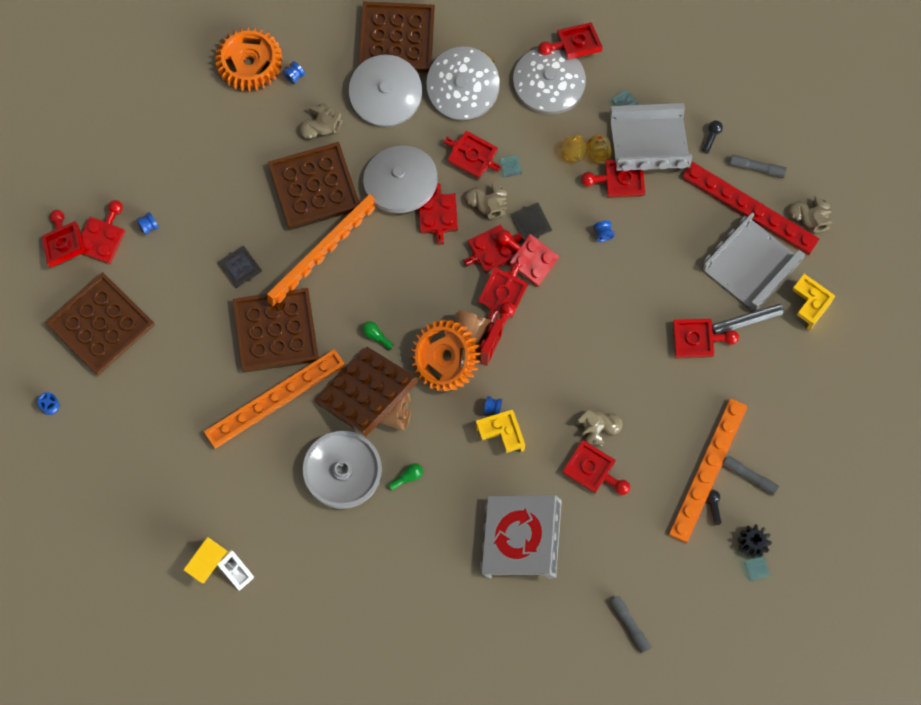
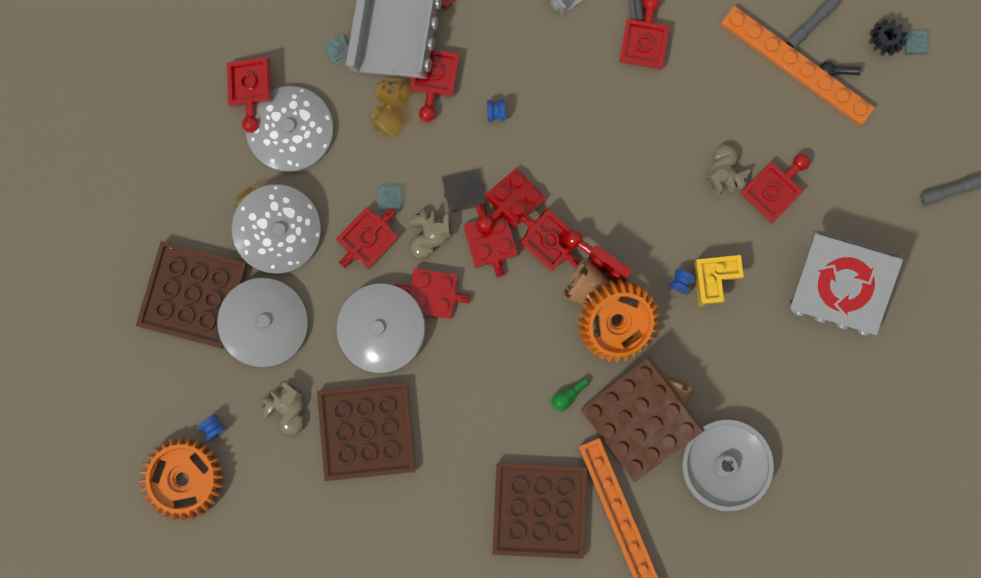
camera: 75 degrees left, 10 degrees up
(239, 266) = (449, 539): piece -> none
(318, 254) = (462, 444): orange plate -> none
(411, 473) = (742, 388): green piece -> none

